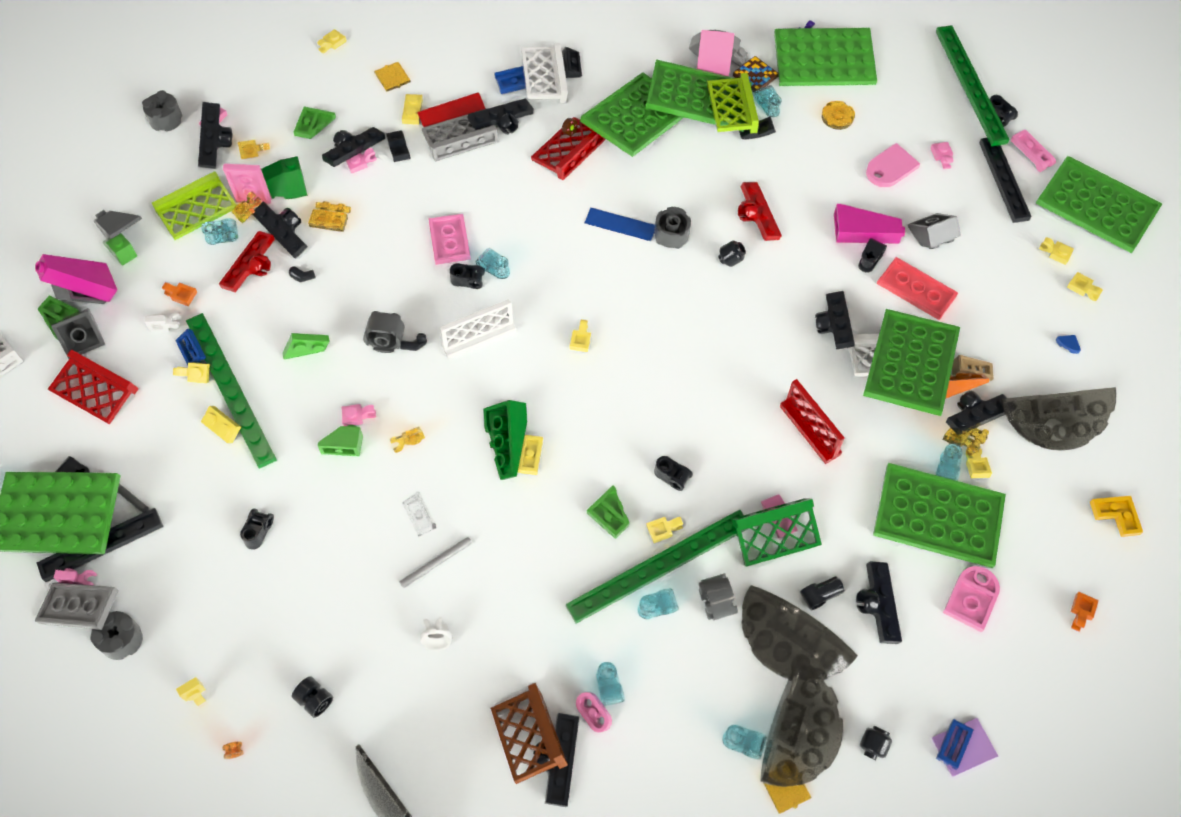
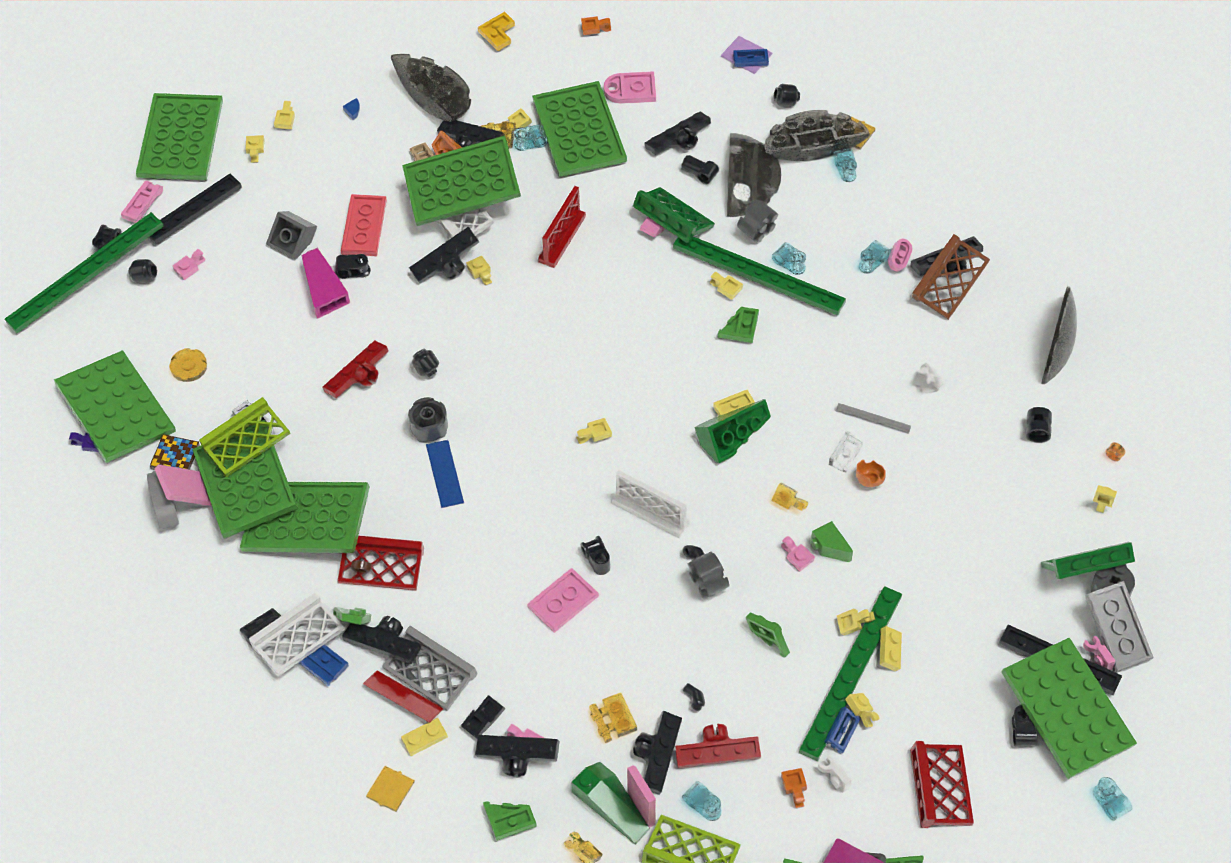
camera: 120 degrees left, 5 degrees down
(78, 332) = (901, 838): dark grey slope -> none
(132, 499) = (1005, 686): dark grey bar -> none
(138, 614) = (1091, 560): none -> green fence
(246, 208) = (665, 797): clear yellow plate -> none
(258, 525) = (949, 555): black piece -> none
(265, 410) = (851, 620): none -> light yellow plate
(379, 513) = (870, 473): none -> orange hair
(494, 263) = (567, 541): clear light blue piece -> none
(532, 104) = (355, 615): none -> bright green wing
(675, 475) = (675, 304): black piece -> none
(769, 100) = (207, 421): clear light blue piece -> none
(812, 345) = (480, 268): none -> light yellow plate
(892, 165) = (230, 297): bright pink tile -> none
(952, 120) = (142, 271): none -> black head

